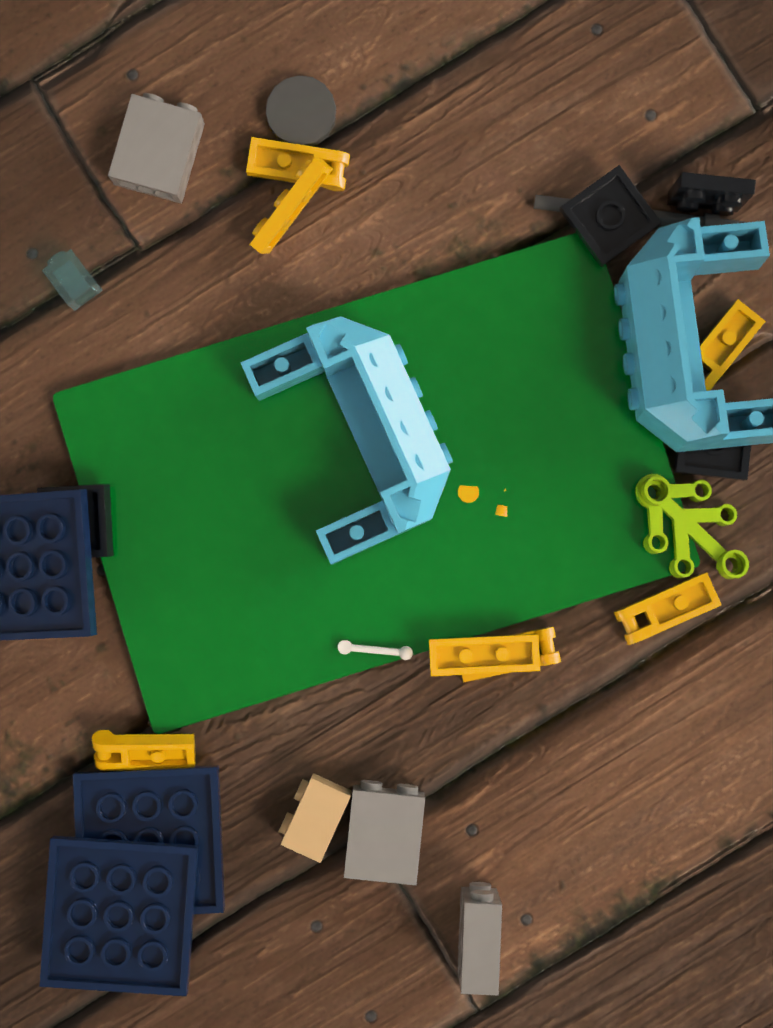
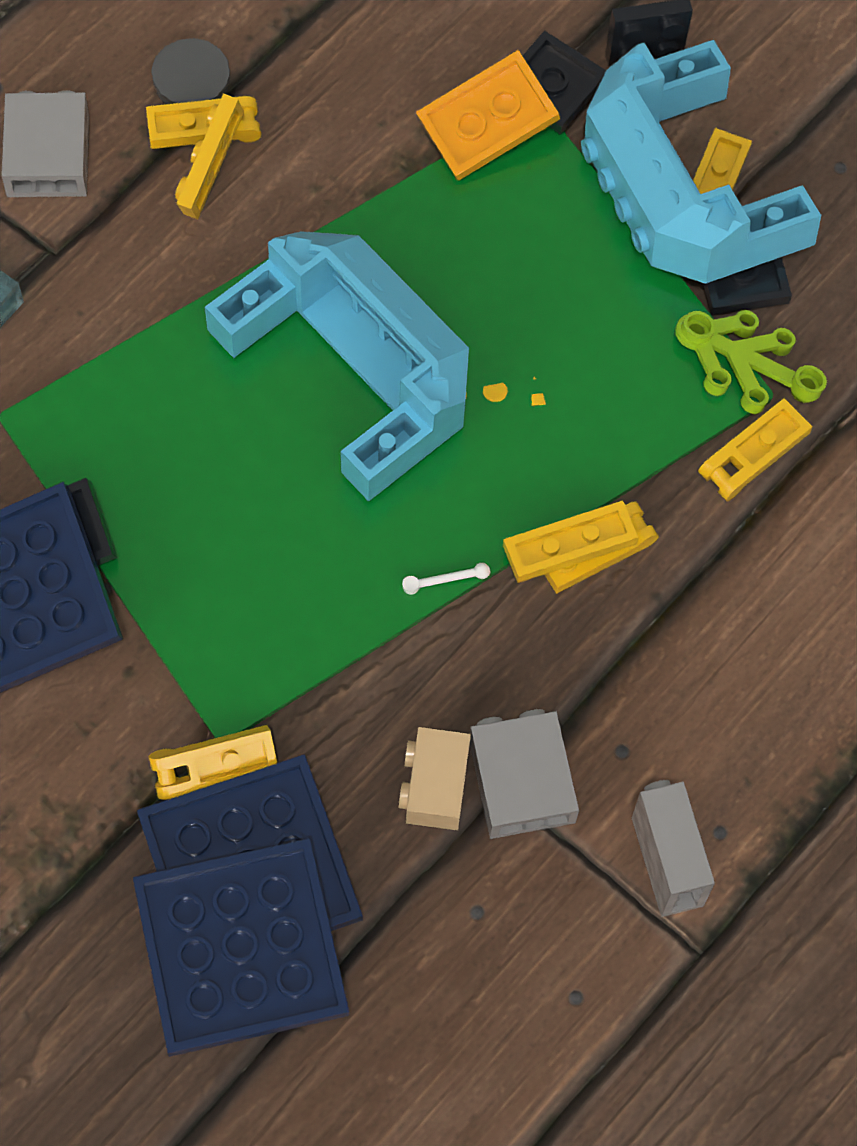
camera: 20 degrees left, 20 degrees down
(542, 237) = (488, 115): none -> light orange plate

